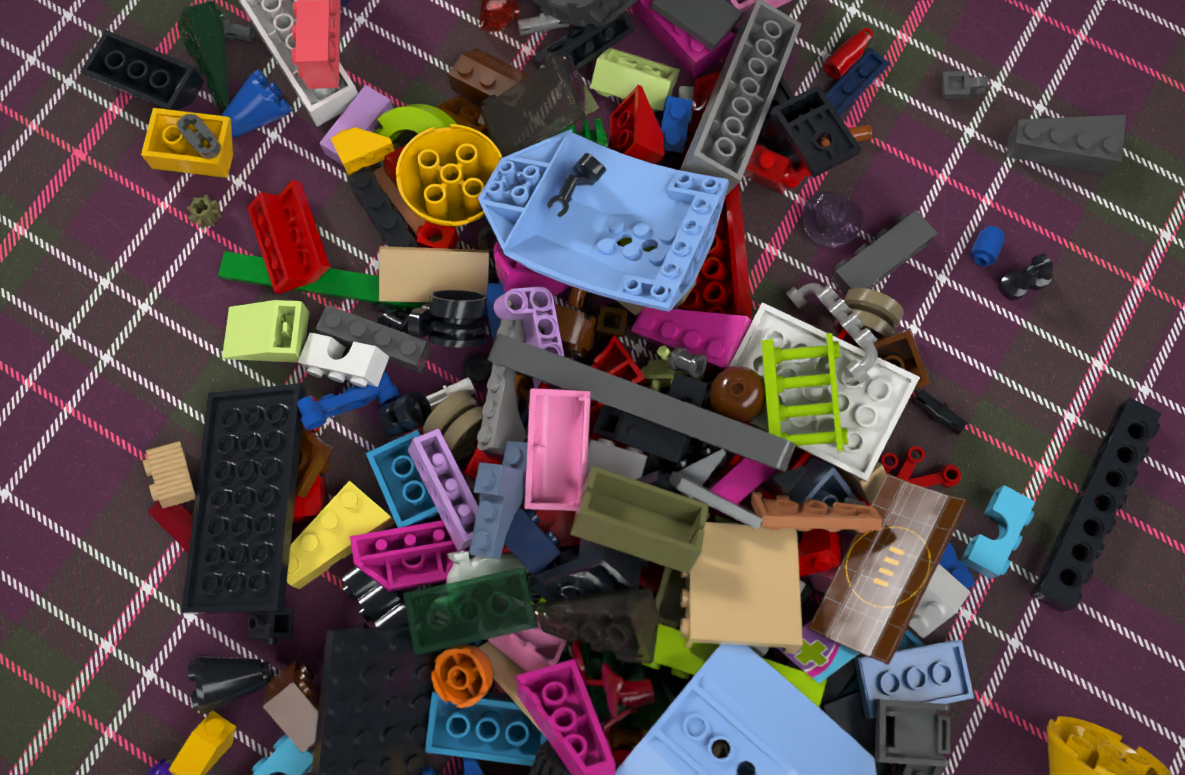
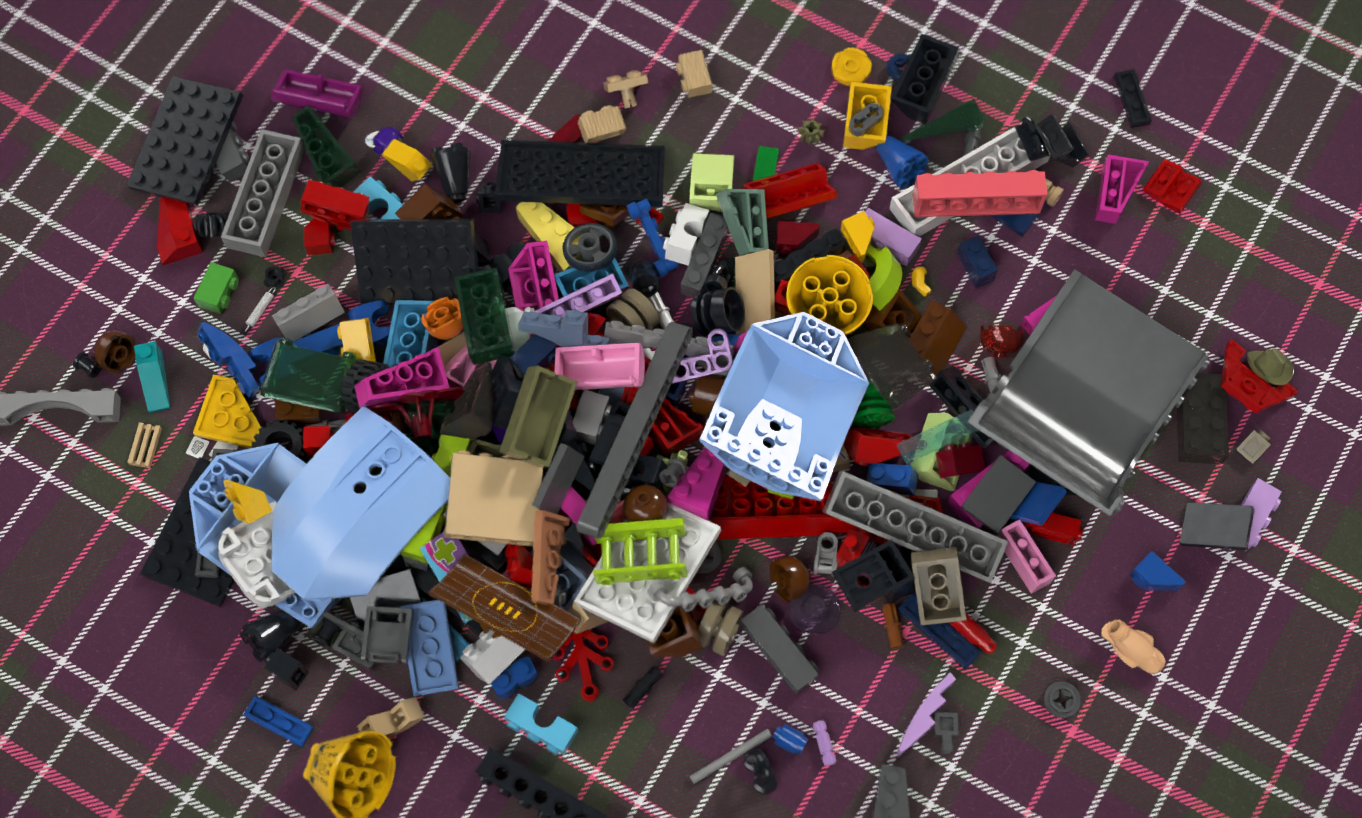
camera: 90 degrees right, 5 degrees down
(103, 355) = (694, 73): none -> tan brick
(112, 442) = (626, 85): none -> tan plate
(113, 165) = (851, 66): none -> yellow tile
(114, 113) = (894, 62): none -> dark blue gear
(333, 280) = (745, 218): none -> sand green wedge
(339, 469) = (594, 256): none -> dark grey wheel
(350, 235) = (795, 236): none -> dark red slope
(396, 29) = (977, 261): none -> dark blue brick
(416, 96) = (918, 279): none -> yellow arm
(587, 171) = (826, 390): black piece -> none
(629, 67) = (936, 437): none -> clear light blue tile
(653, 51) = (960, 460): none -> dark red brick
(769, 203) = (825, 559): none -> light grey piece
(800, 241) = (791, 578): none -> reddish brown cylinder
(809, 61) = (938, 586): none -> dark tan brick
(955, 109) = (922, 720): none -> lavender slope
(986, 211) = (824, 743): none -> lavender axle
(1010, 313) = (730, 756): none -> light grey bar
(1012, 728) = (395, 721): none -> tan brick

